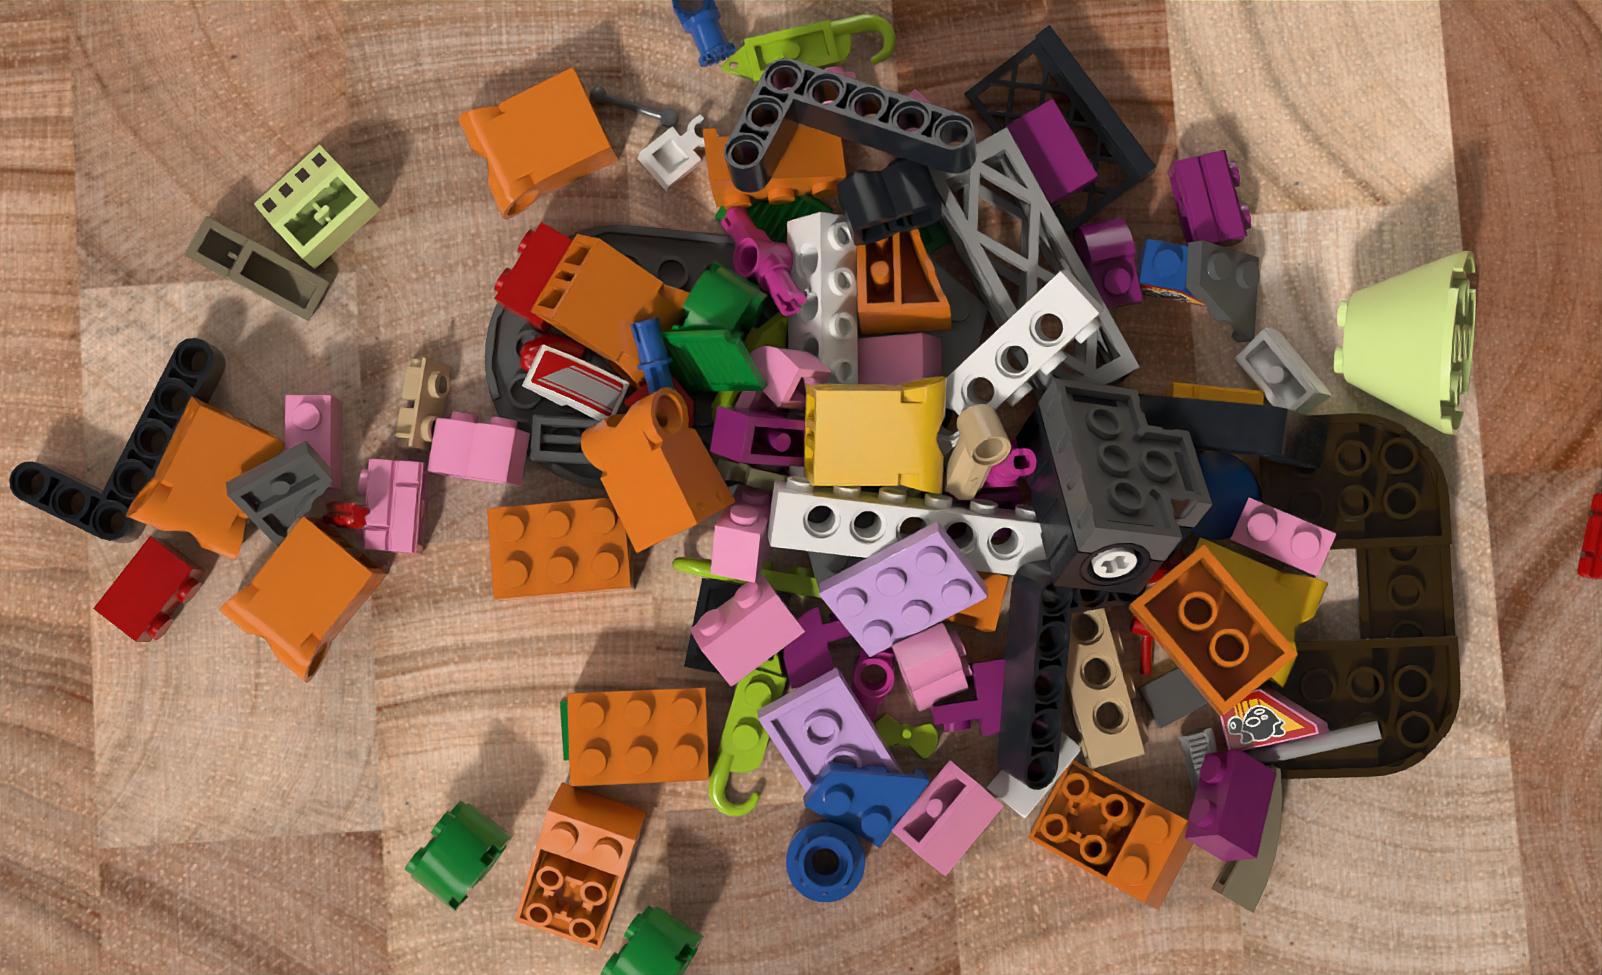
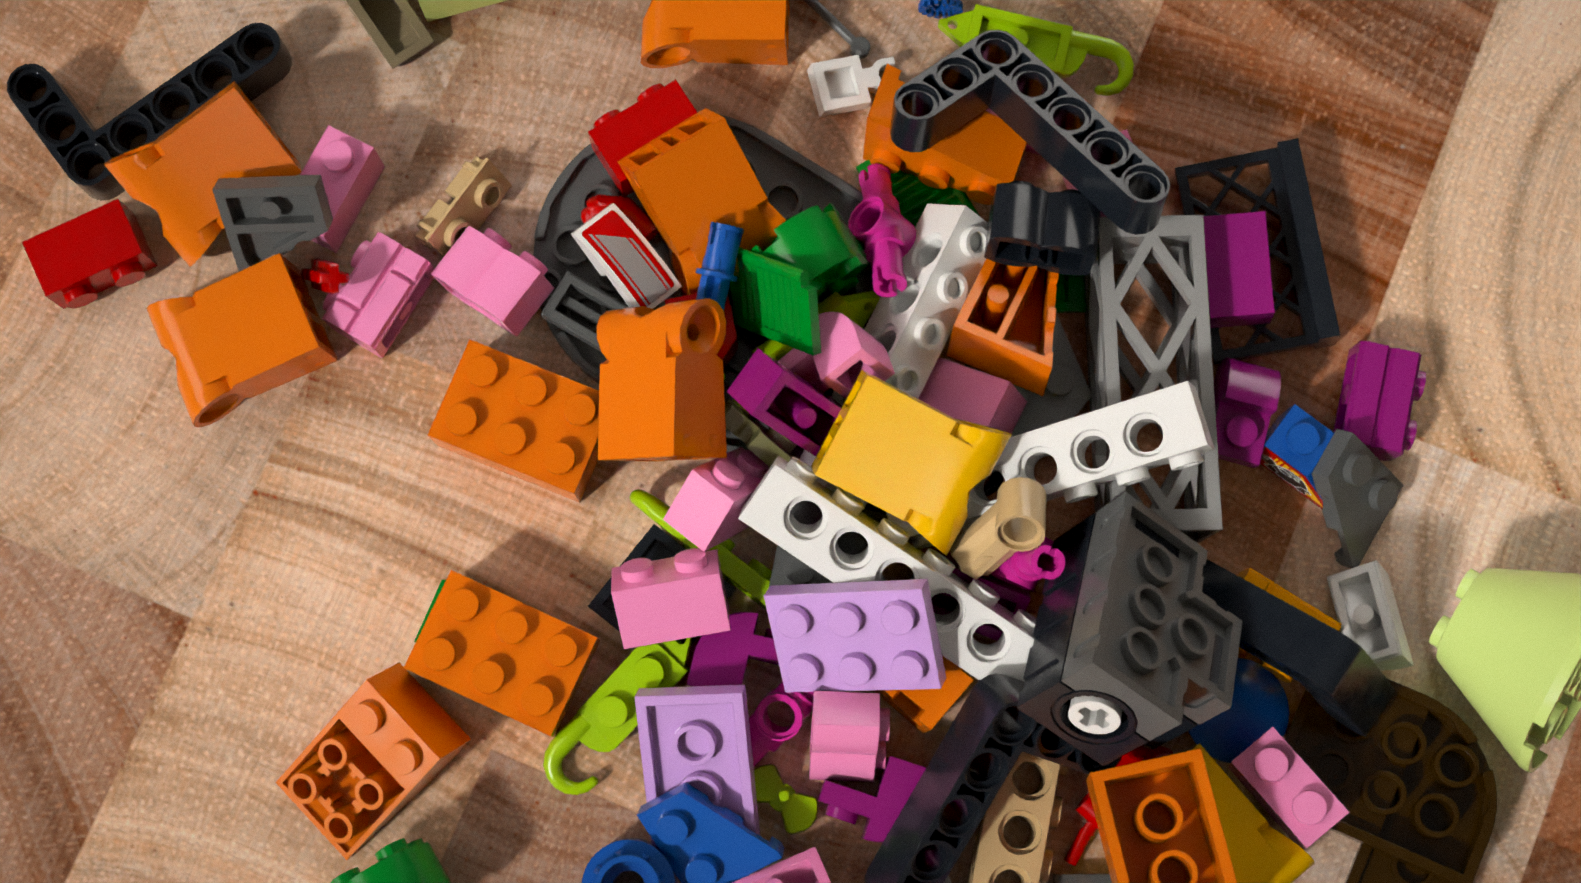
camera: 25 degrees right, 5 degrees down
(458, 854) = (252, 682): green brick -> none

